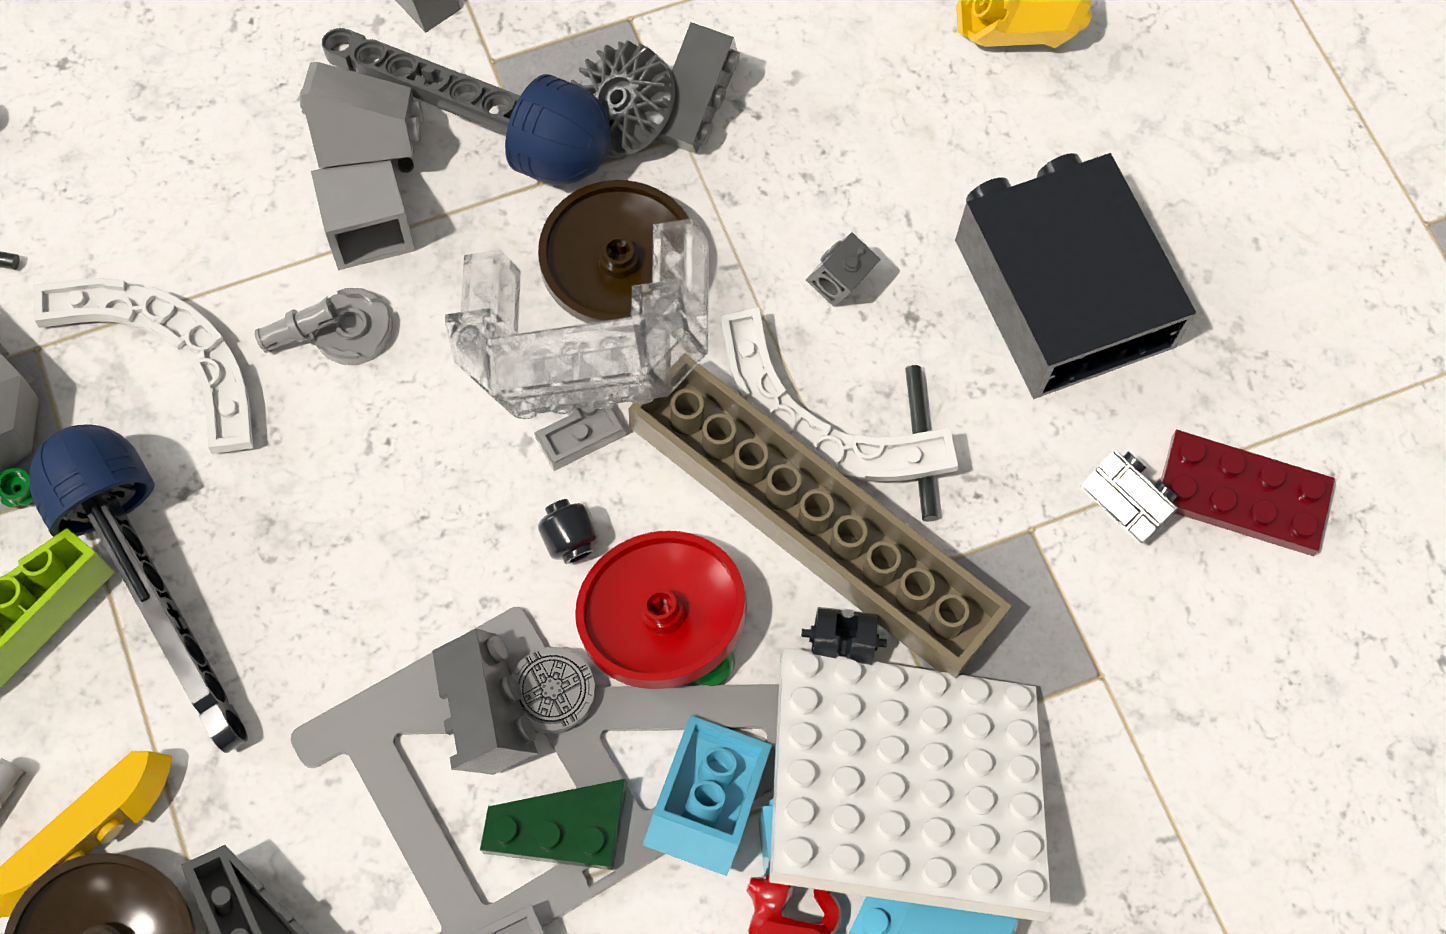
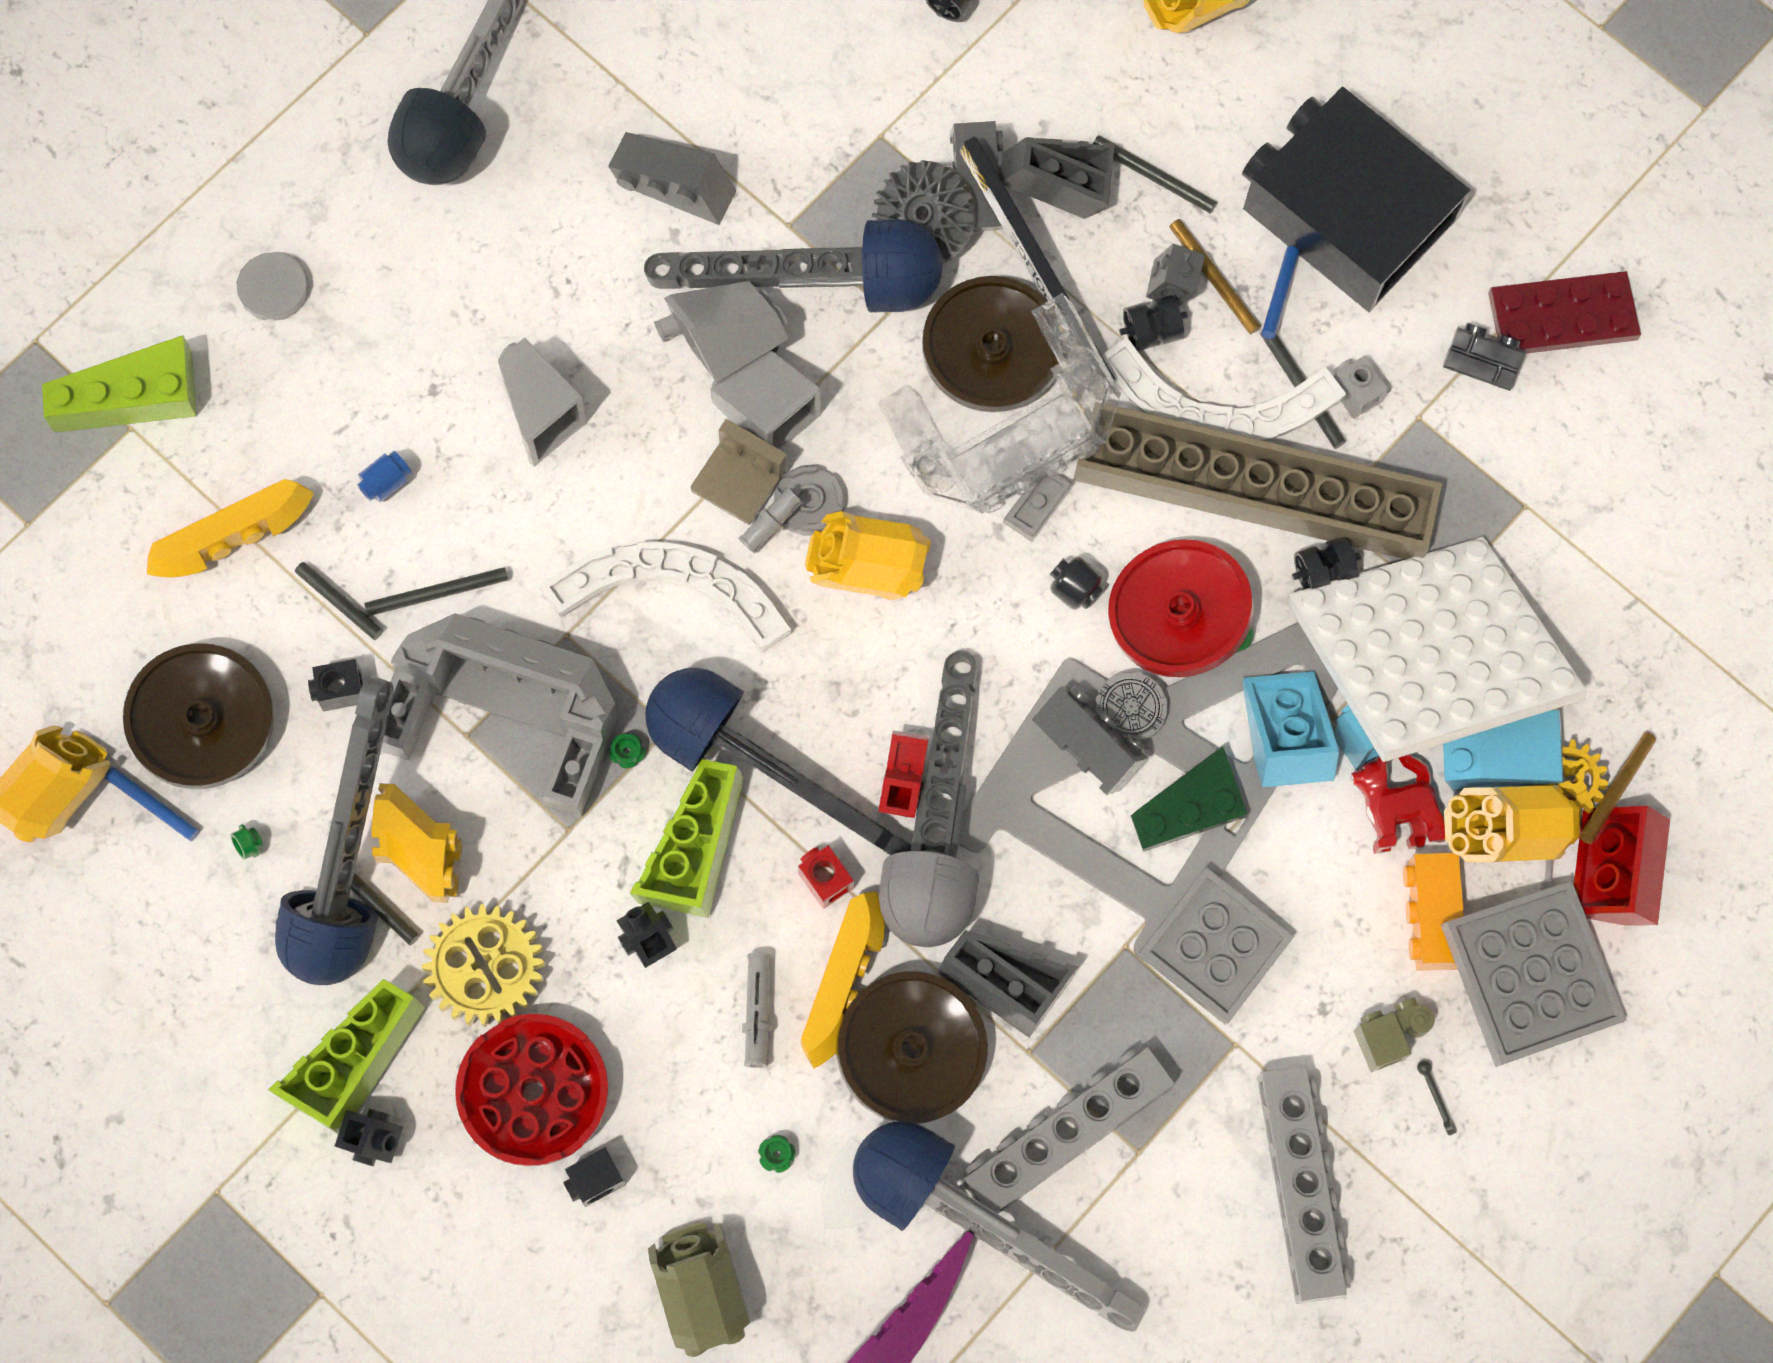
camera: 25 degrees left, 5 degrees up
(134, 111) = (541, 400): none -> light grey slope
(136, 731) = (829, 891): none -> red brick
(206, 786) = (928, 891): none -> piece
(268, 653) = (903, 774): none -> red brick
(295, 268) = (740, 473): none -> dark tan bracket
(368, 404) = (867, 556): none -> yellow brick
(701, 179) = (1013, 222): none -> black tile
(775, 117) = (1060, 173): none -> dark grey wedge
(795, 307) = (1153, 323): none -> black wheel
(881, 168) = (1160, 177): none -> pearl dark grey bar
(889, 293) = (1216, 278): none -> pearl gold bar
(946, 336) = (1280, 292): none -> blue bar
(980, 466) = (1361, 384): none -> light grey brick

